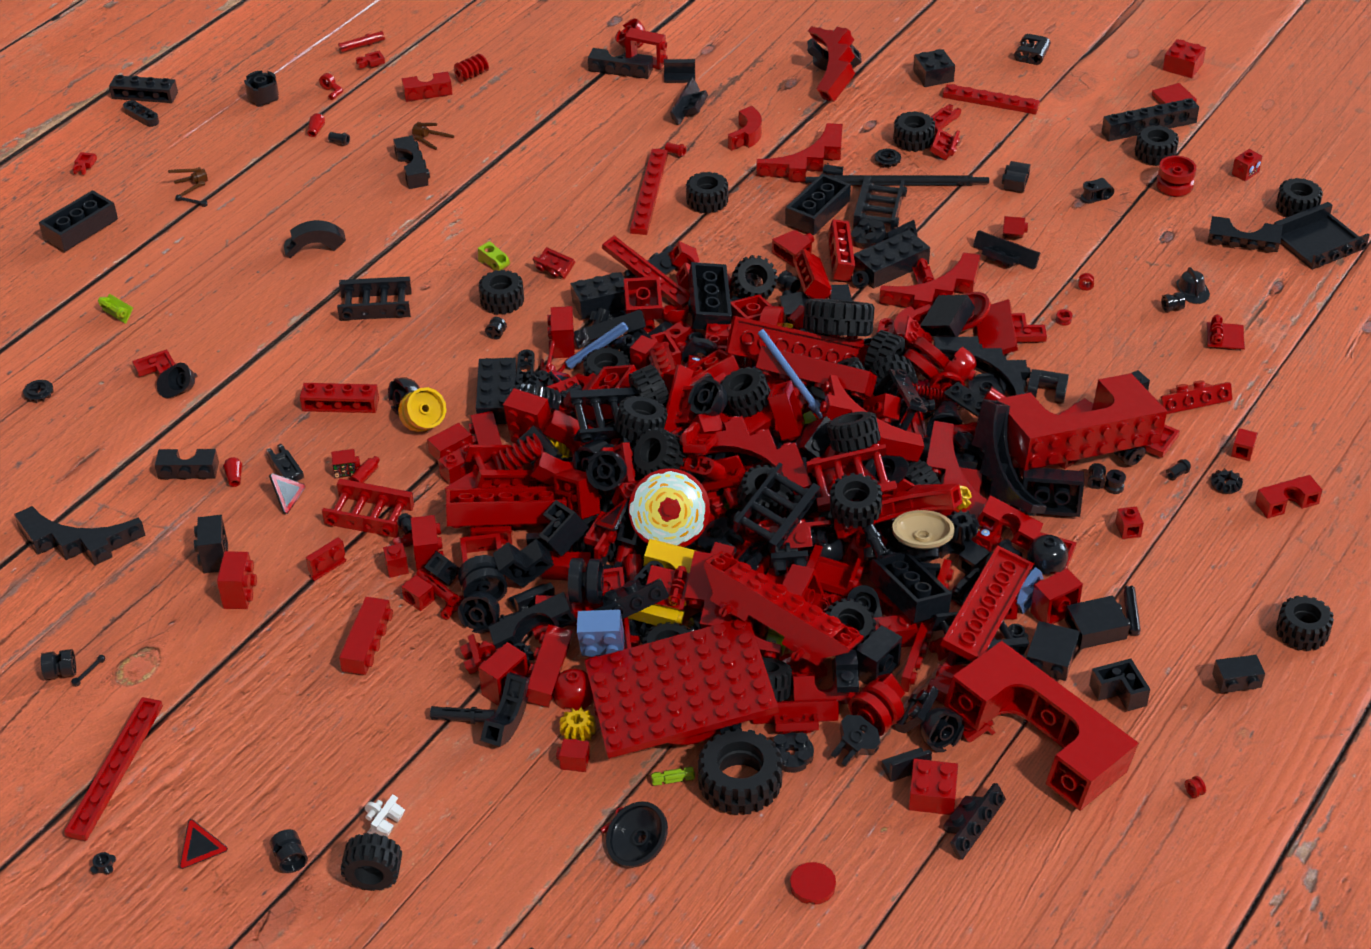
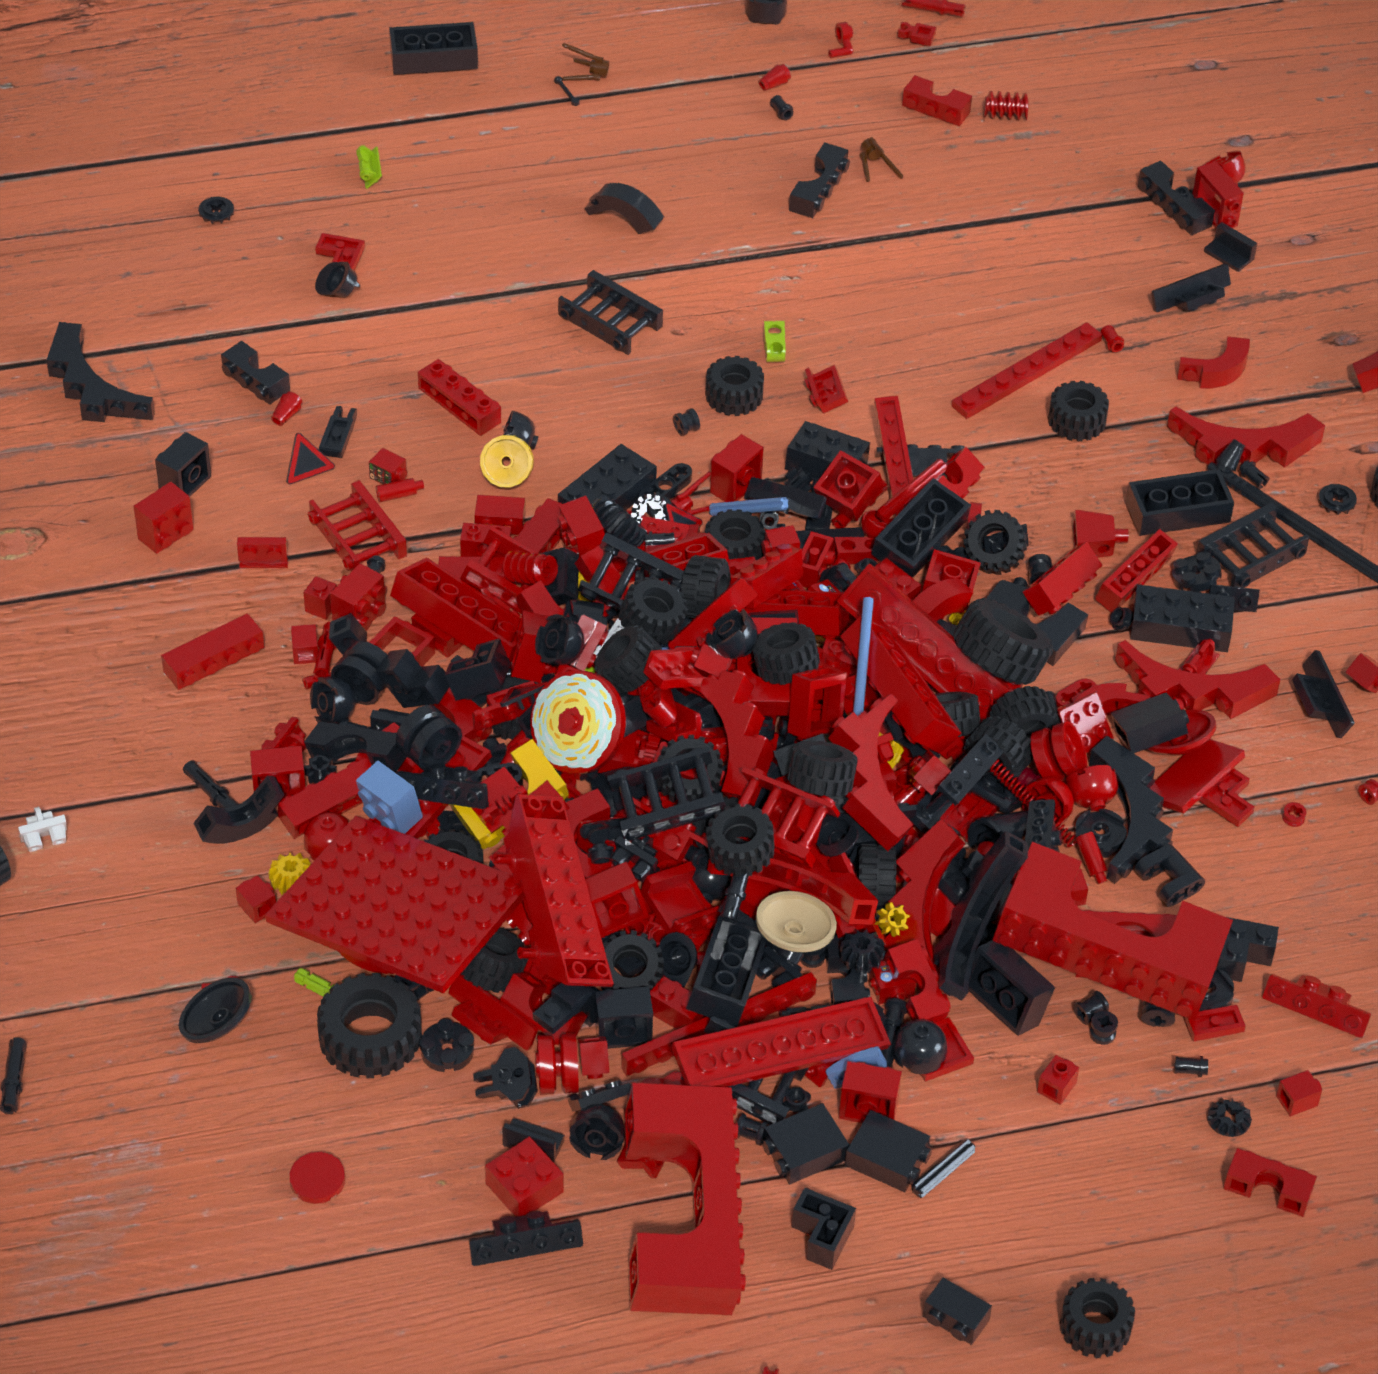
camera: 40 degrees right, 5 degrees up
(675, 273) = (911, 490): none -> red axle
(768, 570) = (600, 853): none -> black plate
(814, 168) = (1230, 457): none -> black cone

